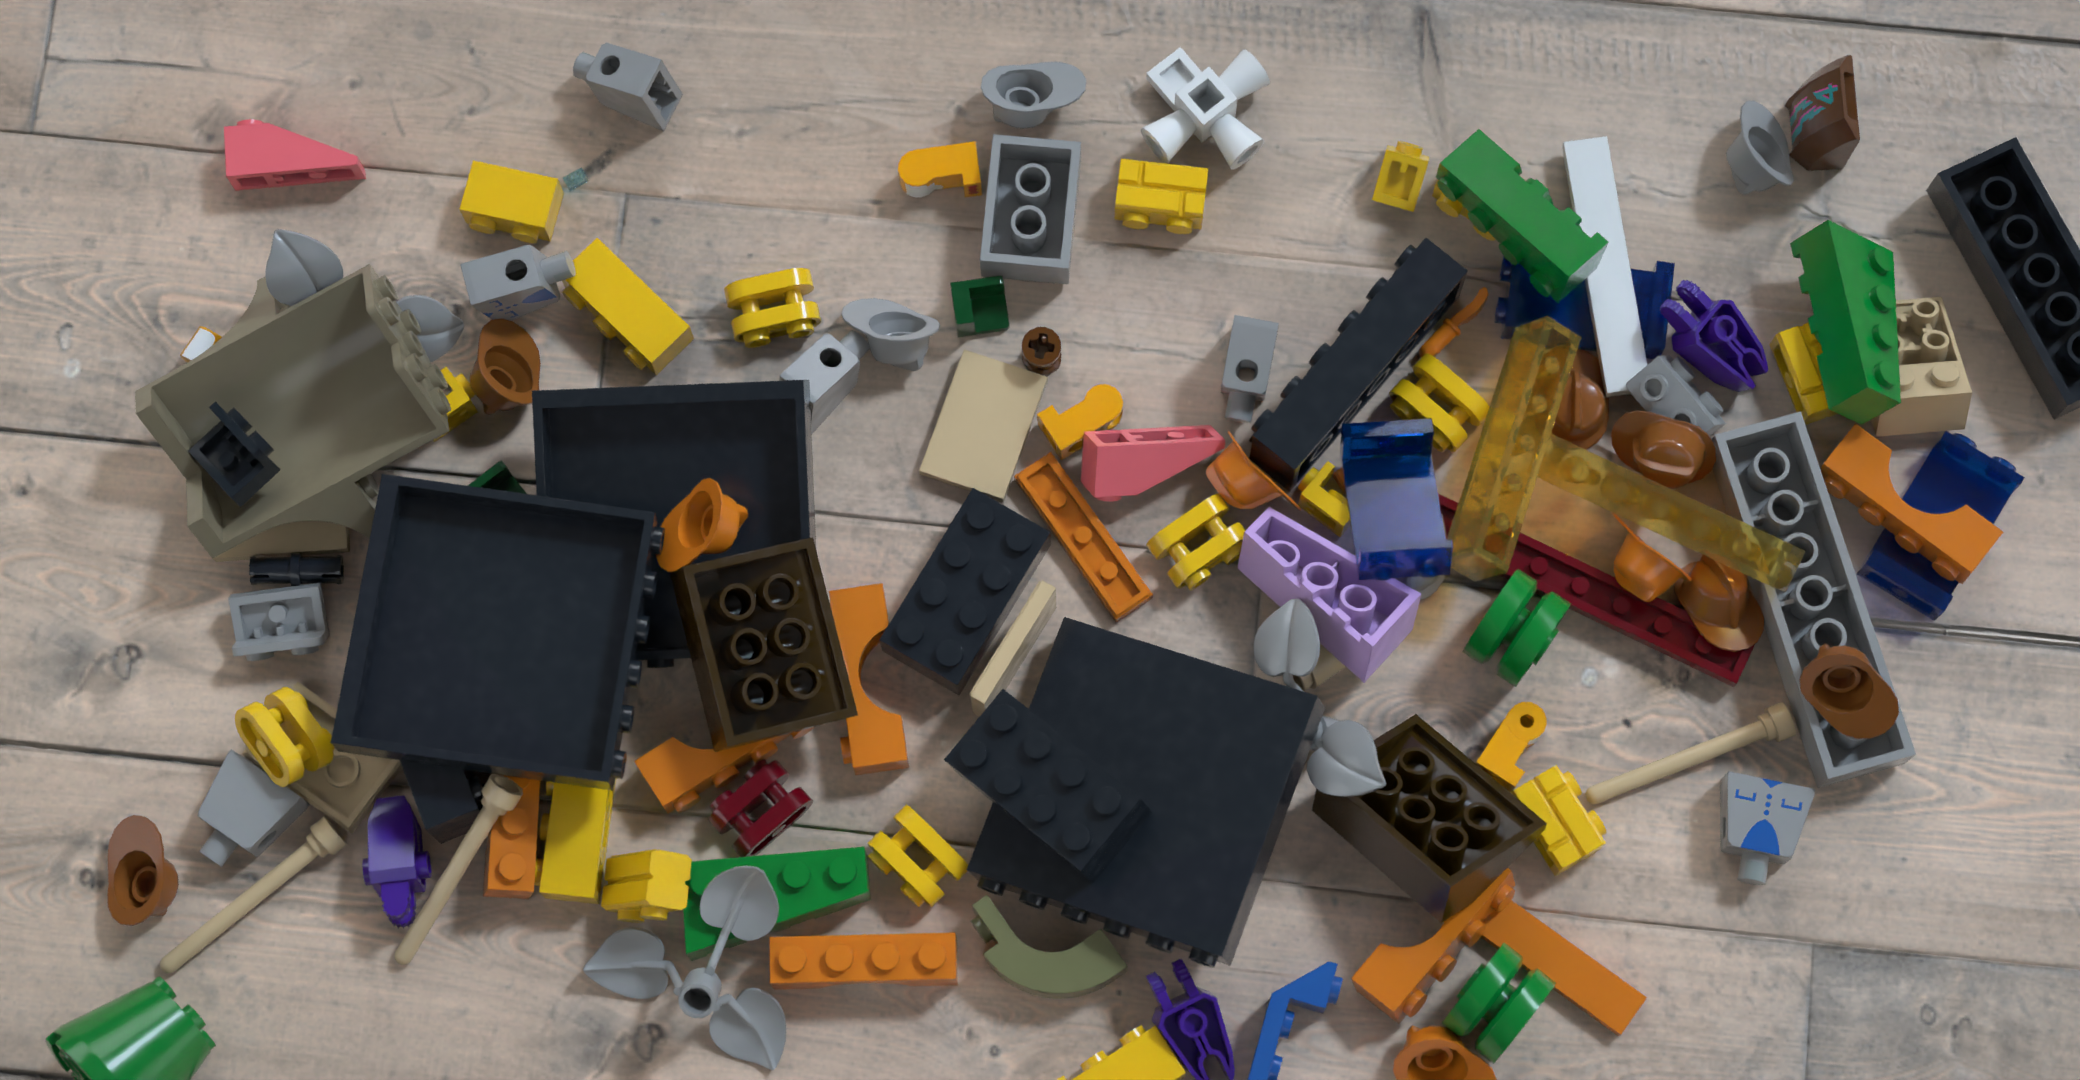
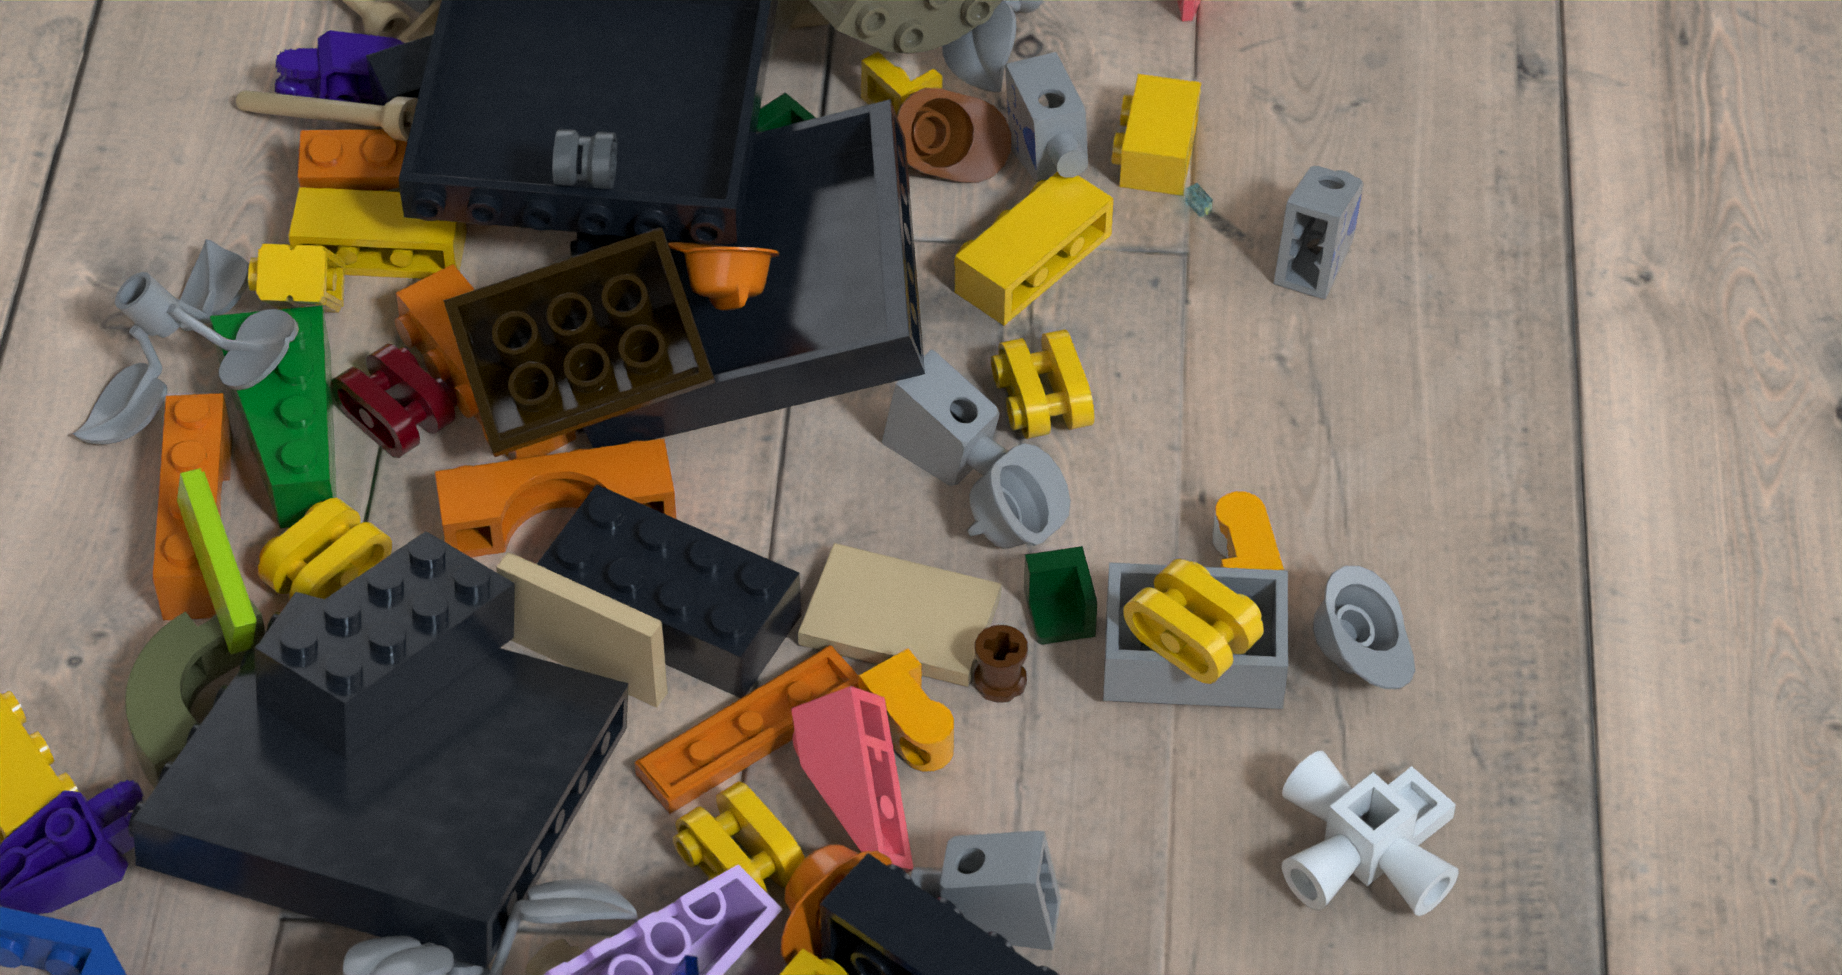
camera: 85 degrees right, 25 degrees down
(608, 626) = (592, 154): none -> dark grey wheel
(959, 921) = (216, 560): none -> lime tile
(1051, 173) = (1194, 620): none -> yellow brick
(1160, 195) = (1236, 791): yellow brick -> none

